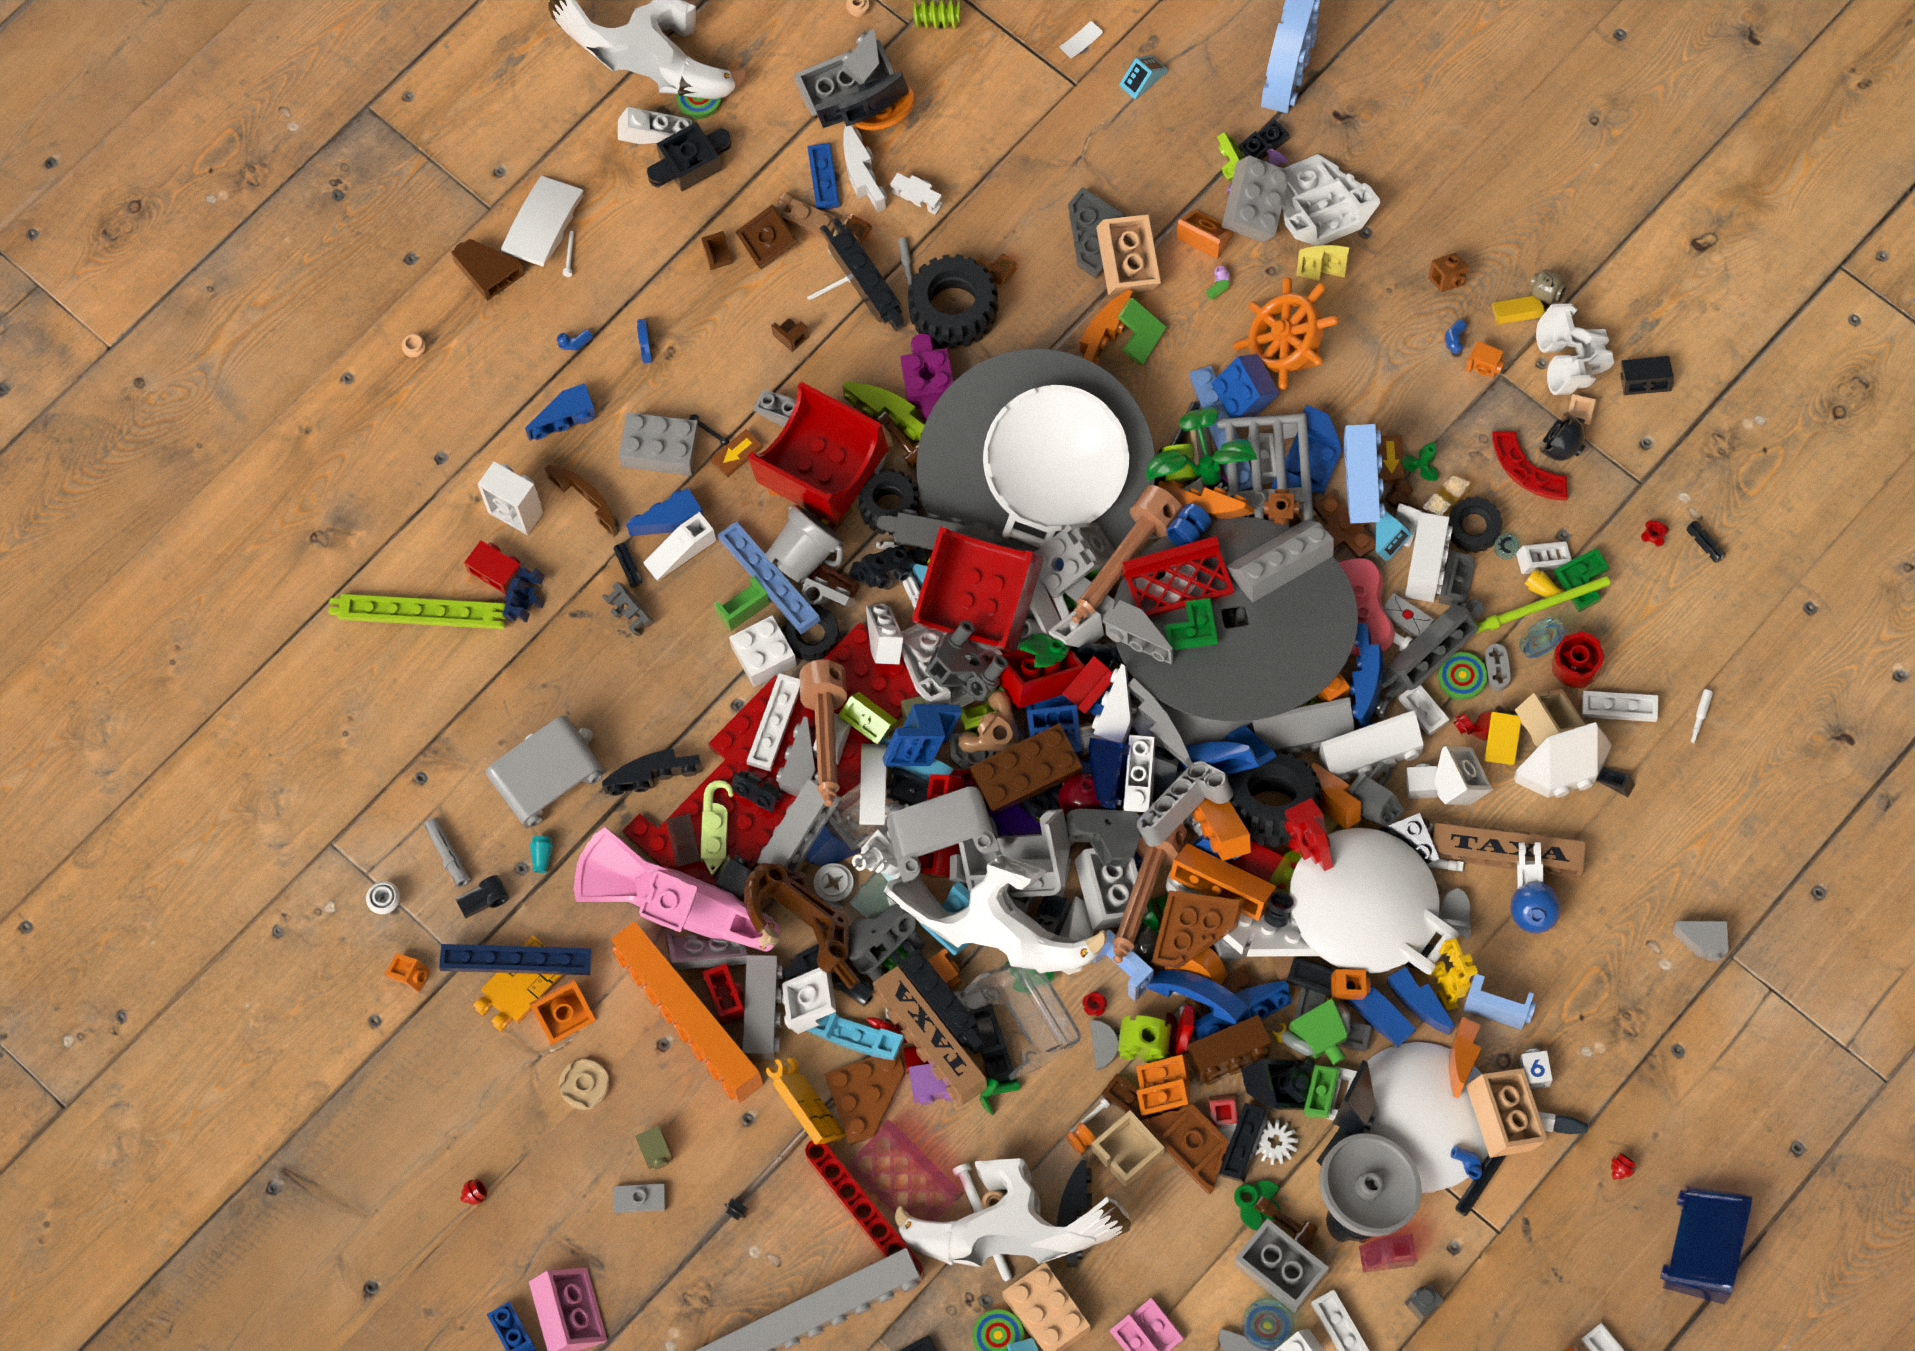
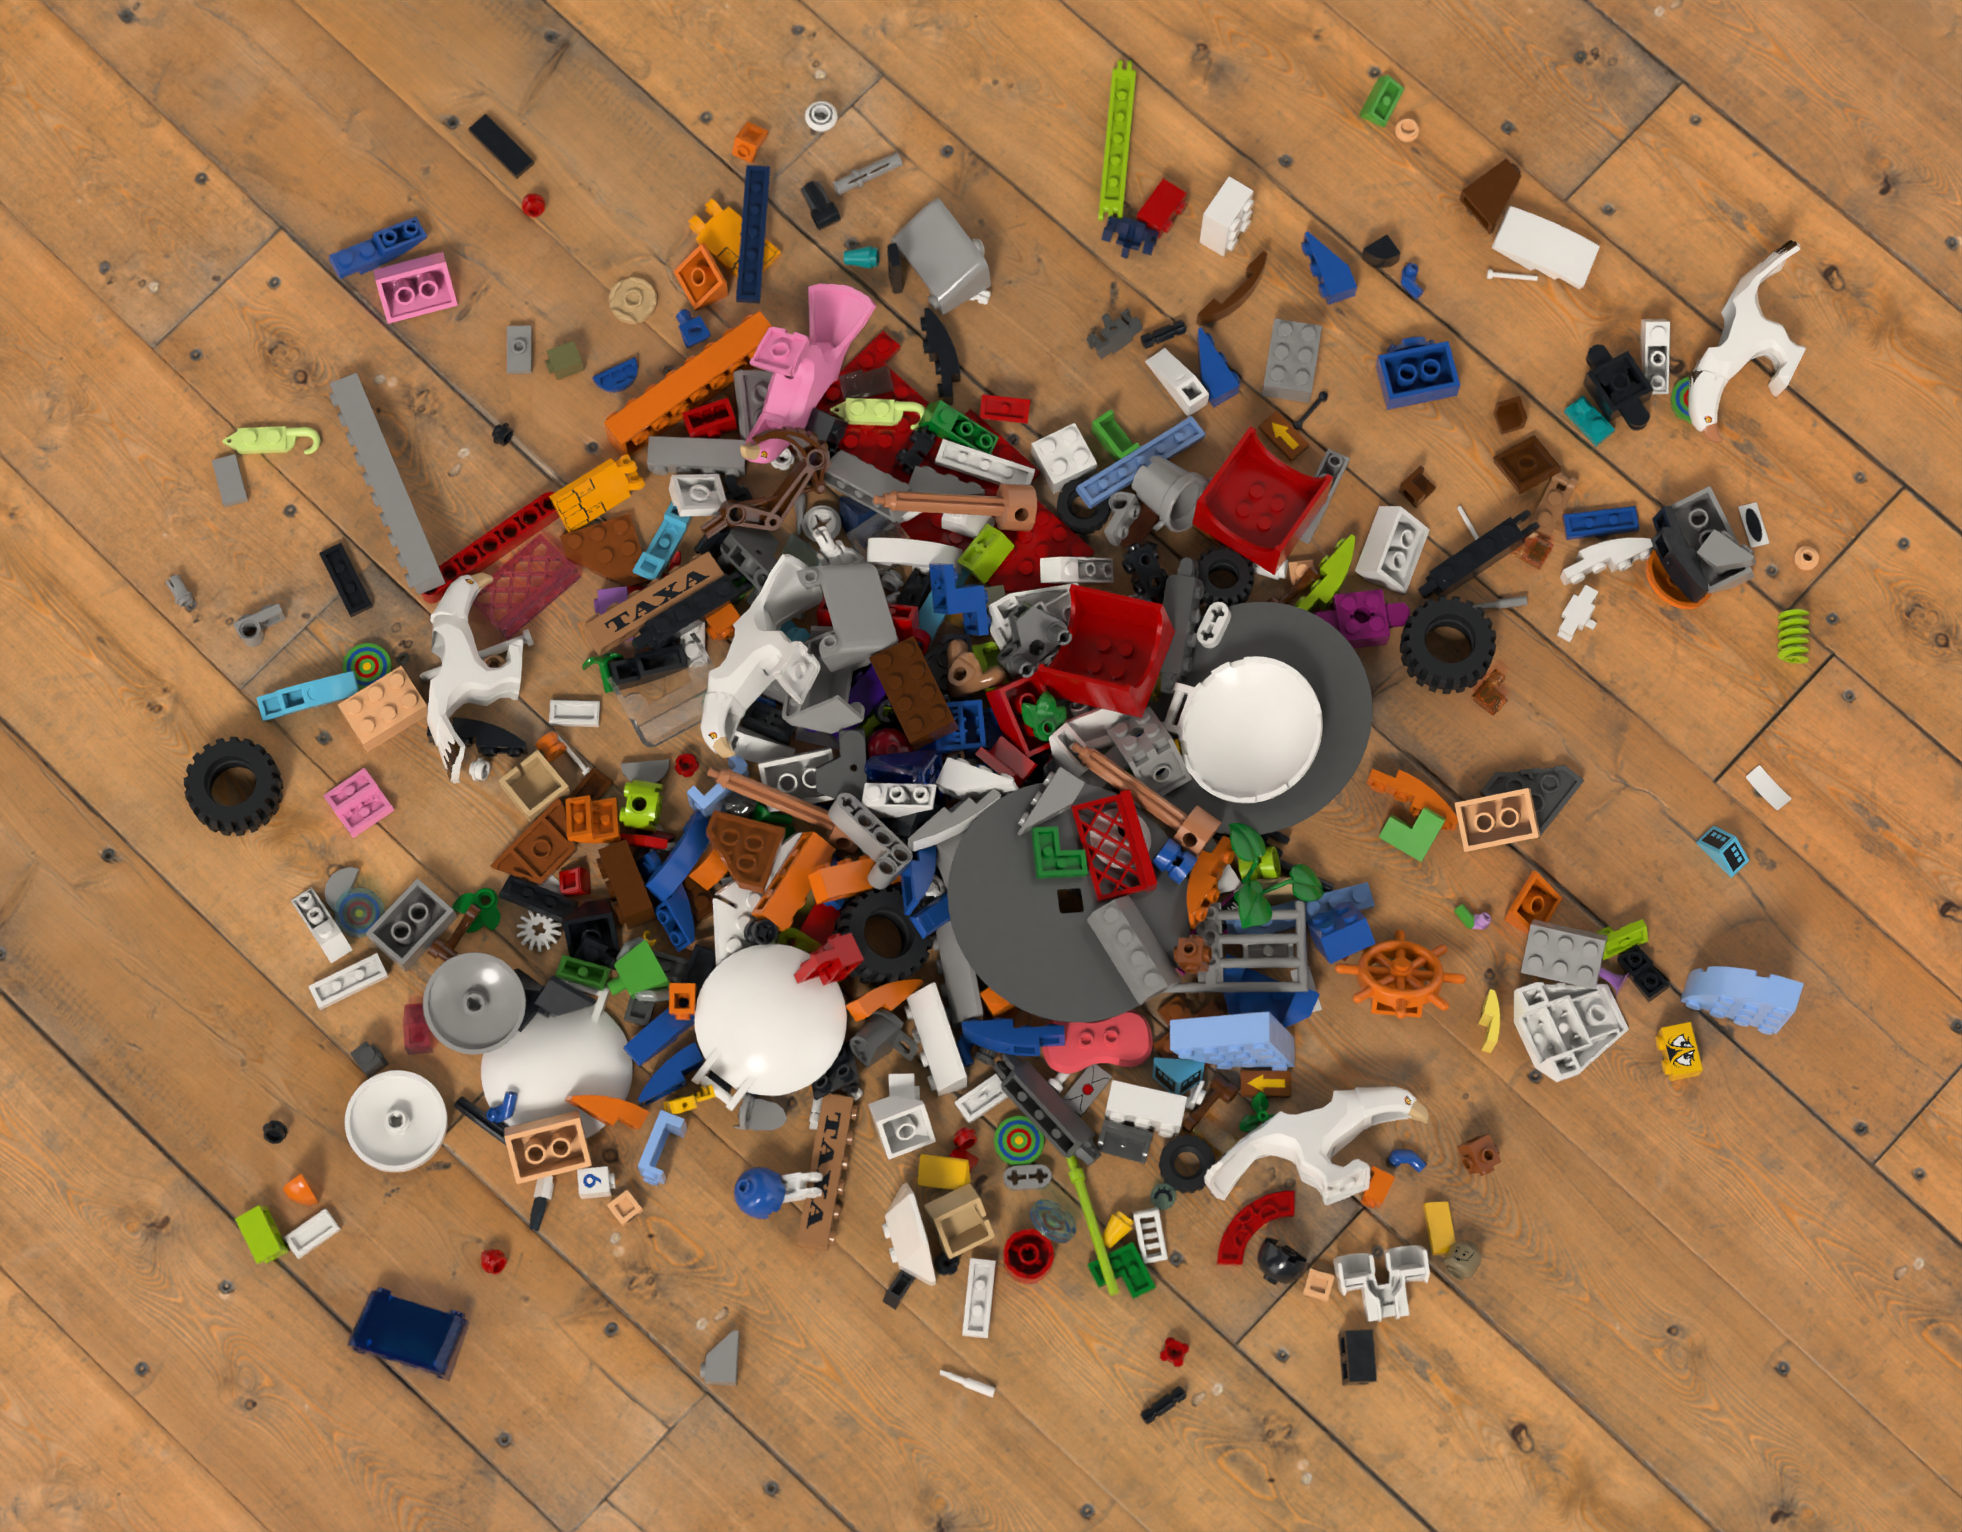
camera: 85 degrees right, 5 degrees up
(380, 370) = (1382, 101): none -> bright green slope
(403, 1231) = (501, 146): none -> black tile
(545, 365) = (1381, 253): none -> black brick
(561, 811) = (894, 268): none -> black tile
(622, 1015) = (692, 330): none -> blue bracket
(671, 1094) = (618, 377): none -> blue tile
(677, 330) = (1417, 375): none -> blue brick
(708, 707) = (1005, 408): none -> red panel
(720, 186) = (1589, 421): none -> teal hinge
(733, 749) = (957, 428): none -> green slope
(823, 50) = (1753, 525): none -> sticker
(854, 354) = (1392, 549): none -> white slope
(942, 499) = (1209, 622): none -> white beam
(1041, 1119) = (574, 713): none -> white tile
(1338, 110) = (1679, 1051): none -> yellow brick
(1451, 406) = (1315, 1138): none -> white animal
(1489, 1268) = (396, 1121): none -> white dish
(1558, 1040) = (625, 1208): none -> light nougat plate

